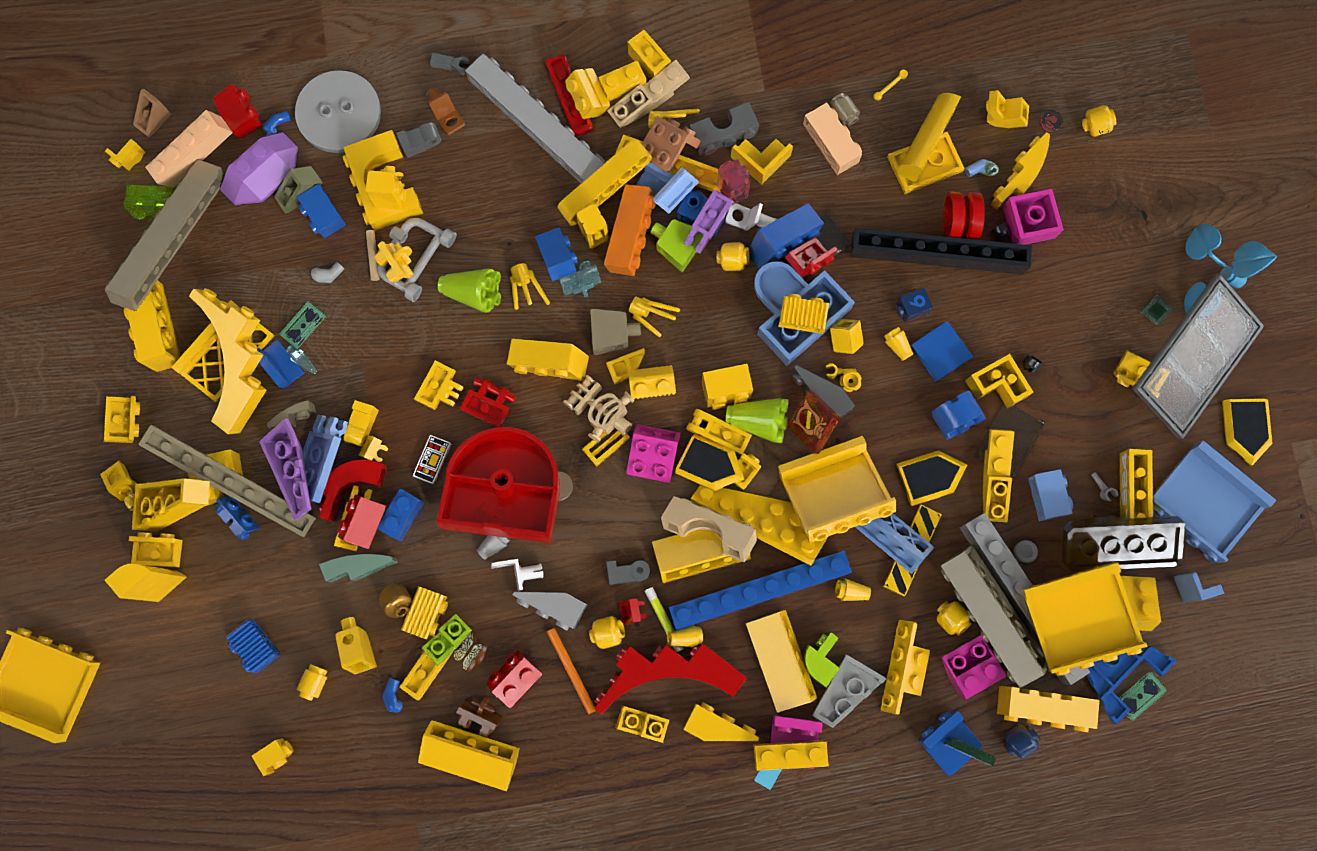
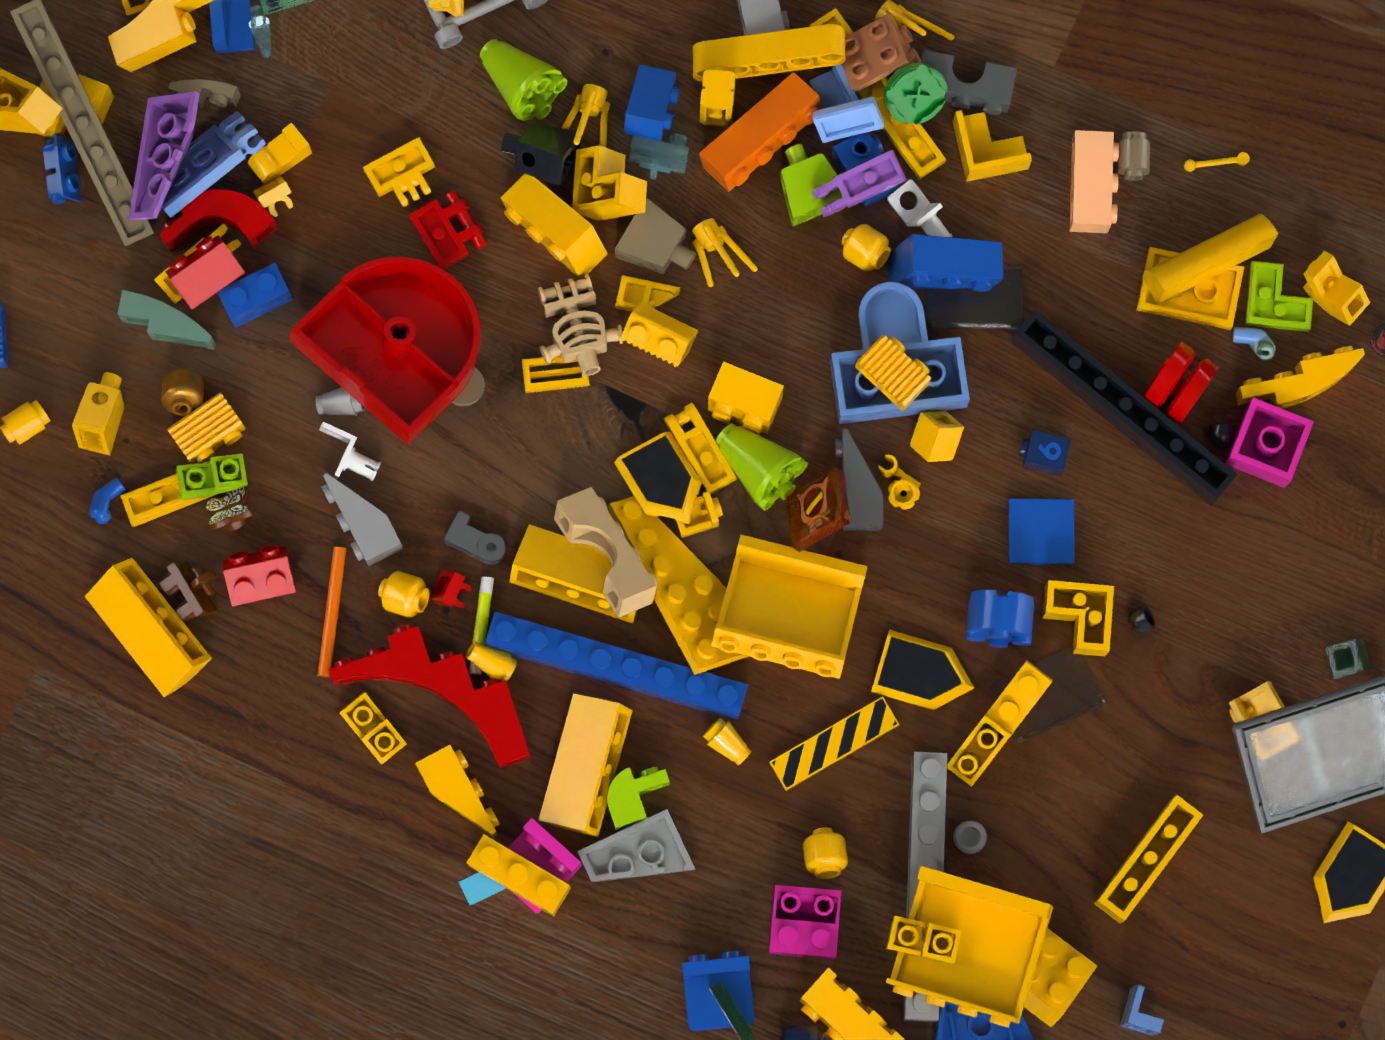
camera: 30 degrees right, 0 degrees up
(432, 459) = (336, 254): tile -> none
(513, 321) = (543, 152): none -> black torso
(563, 319) = (602, 186): none -> yellow brick
(653, 453) = (603, 420): dark pink bracket -> none
(703, 150) = (915, 93): none -> tile
(733, 181) = (924, 155): clear pink brick -> none
(810, 257) = (956, 309): red bracket -> none
(898, 343) = (994, 487): yellow cone -> none
(898, 547) = (815, 722): medium blue fence -> none
(906, 668) = (728, 874): yellow bracket -> none
(973, 144) = (1266, 304): none -> lime tile
(995, 616) = (872, 874): dark tan brick -> none
(1050, 495) = (1047, 790): medium blue brick -> none
(1054, 632) = (924, 939): none -> yellow slope
(1104, 489) = (1121, 824): light grey hand -> none
(1128, 541) = (1087, 897): dark brown piece -> none
(1211, 500) = (1235, 928): medium blue panel -> none

